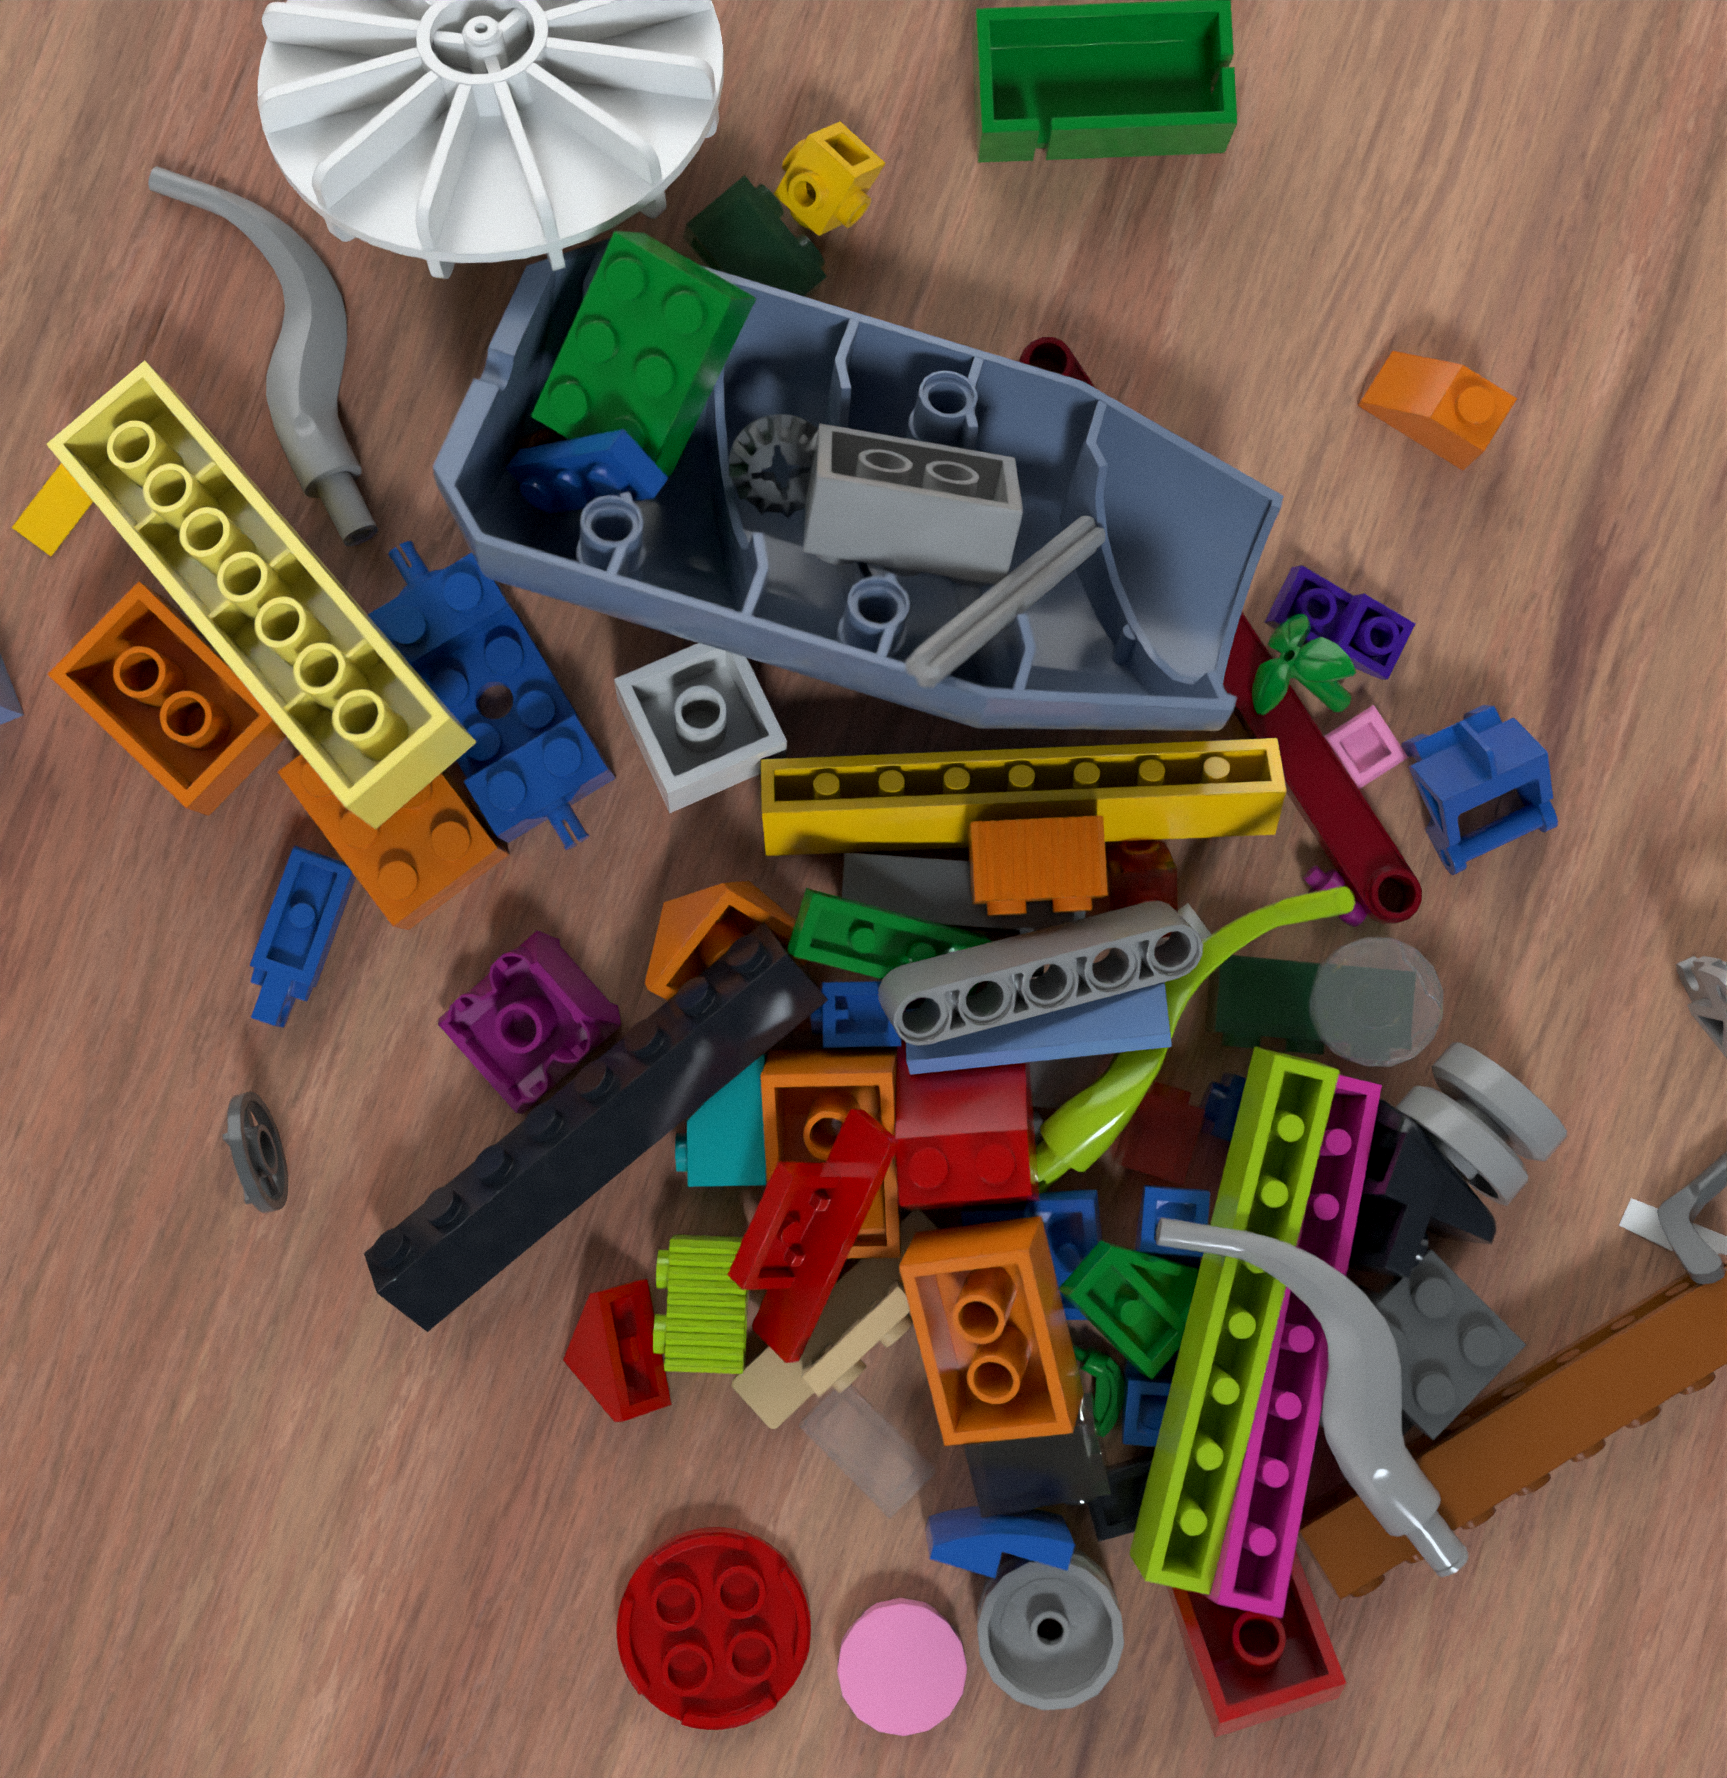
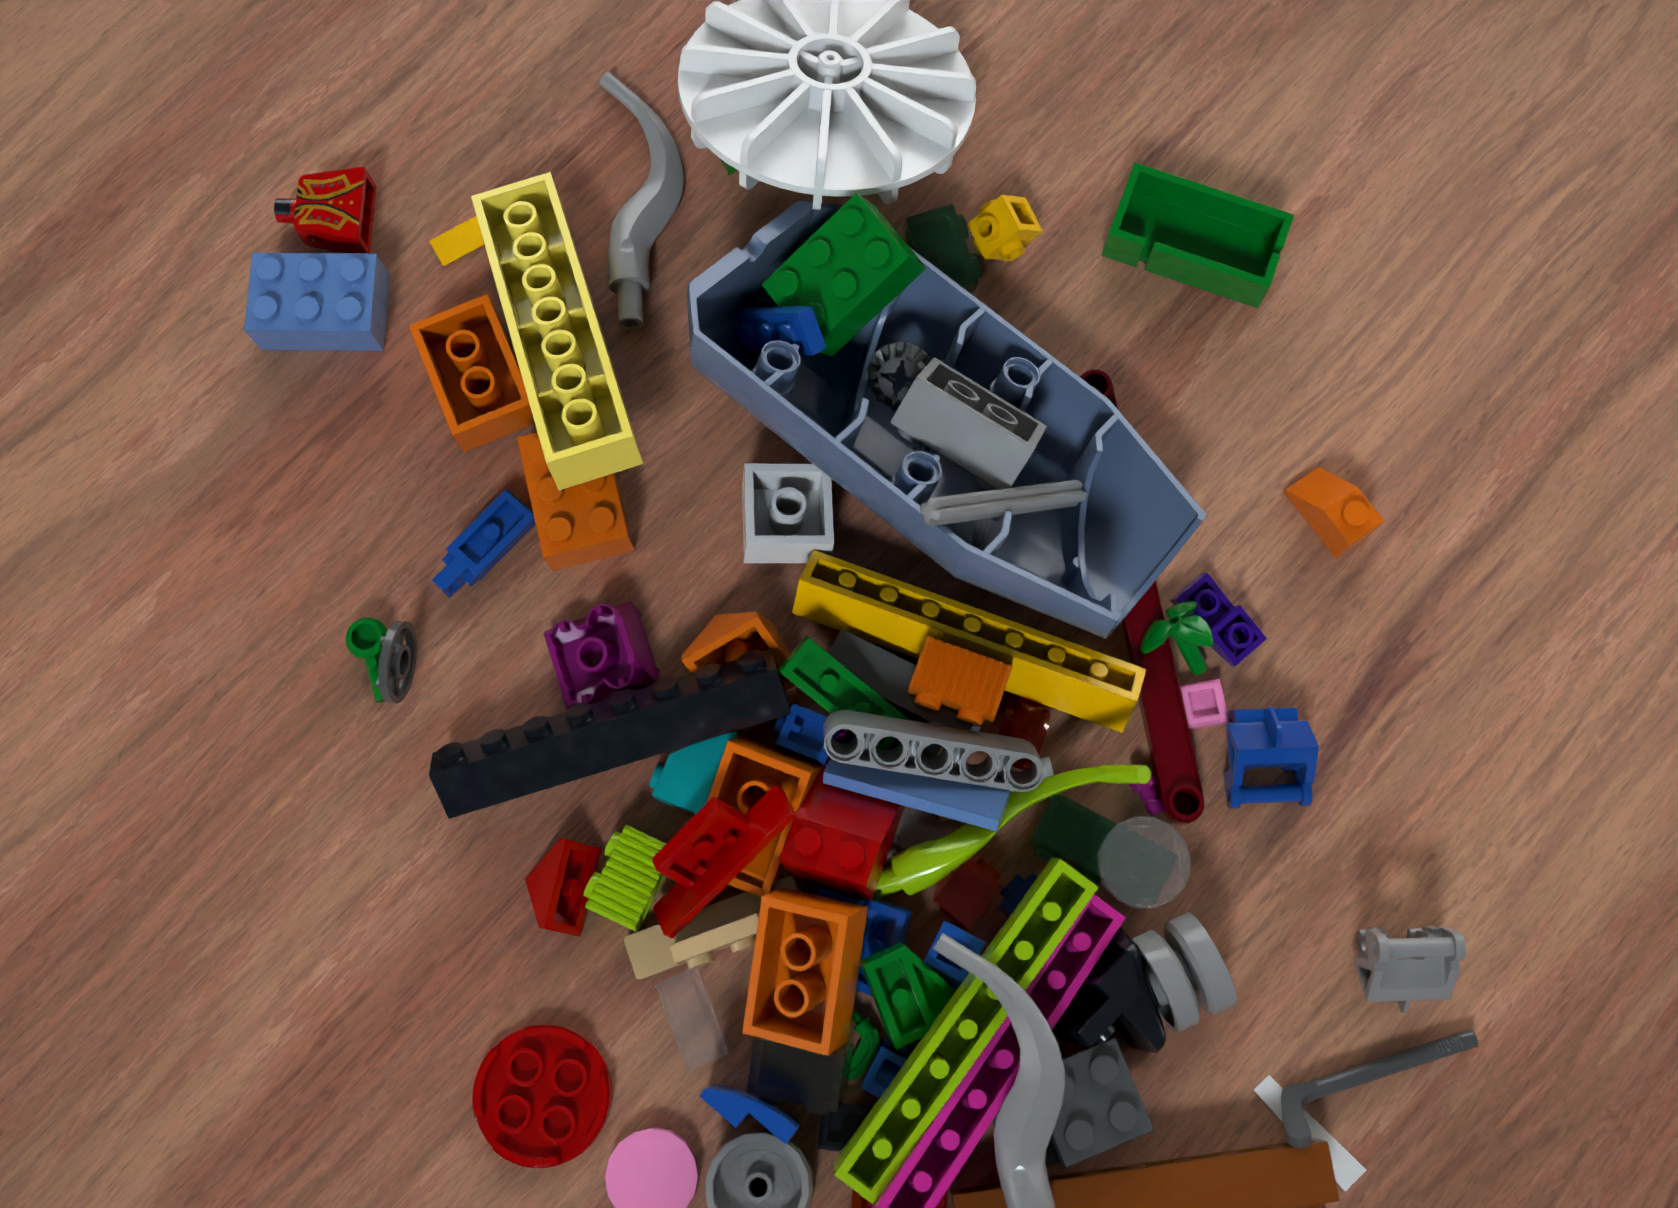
camera: 30 degrees right, 10 degrees down
(196, 1138) = (364, 643): none -> green plate
(469, 638) = (665, 411): blue brick -> none

